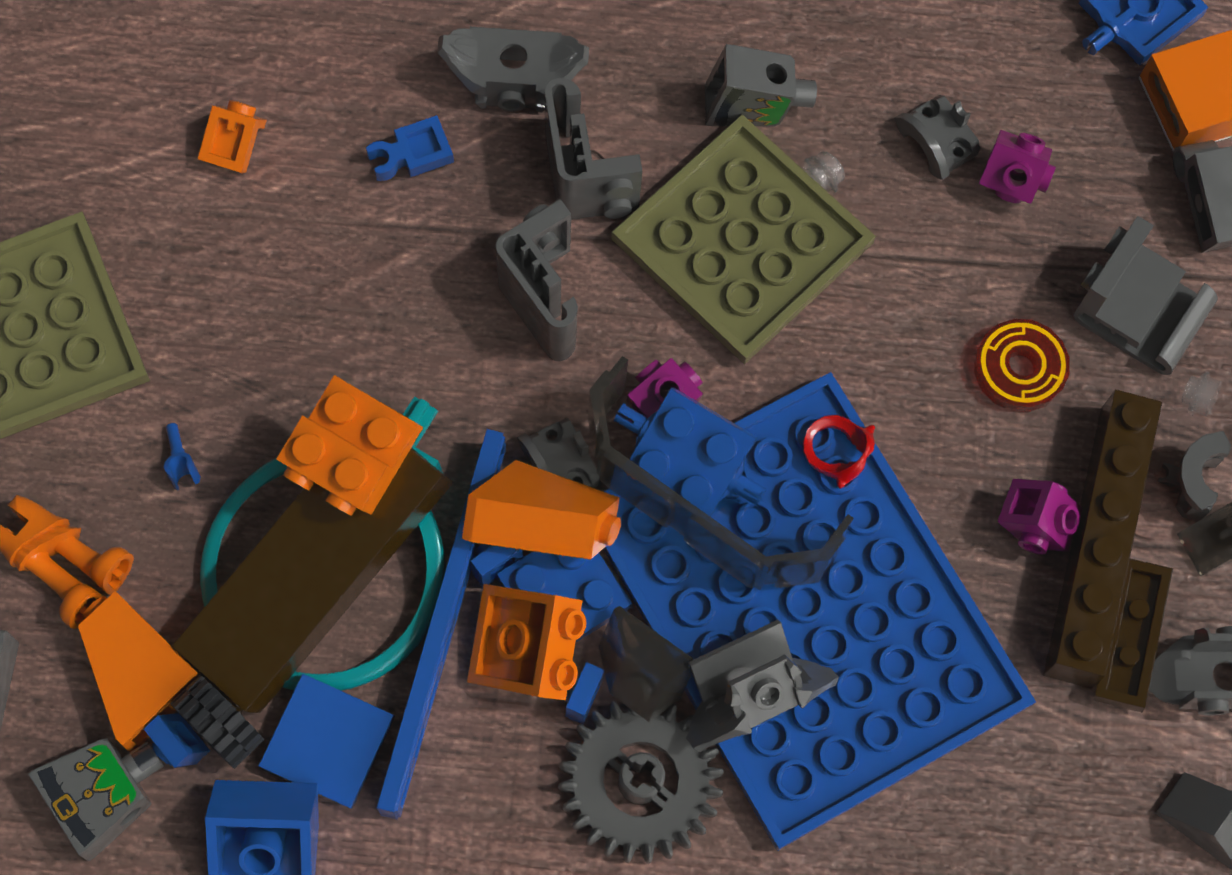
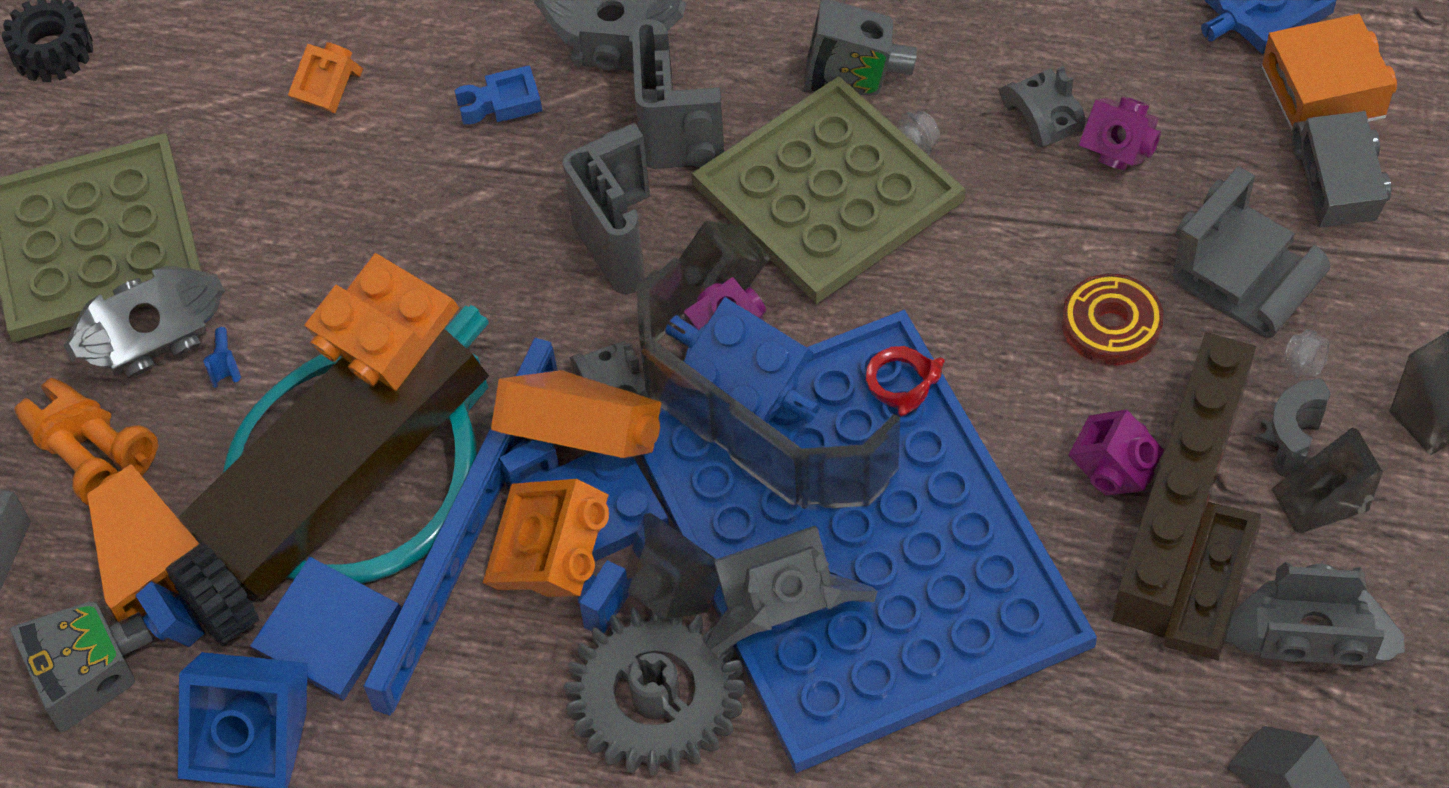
camera: 15 degrees right, 15 degrees down
(63, 449) = (107, 340): none -> dark grey piece
(647, 333) = (716, 256): none -> clear smoke slope

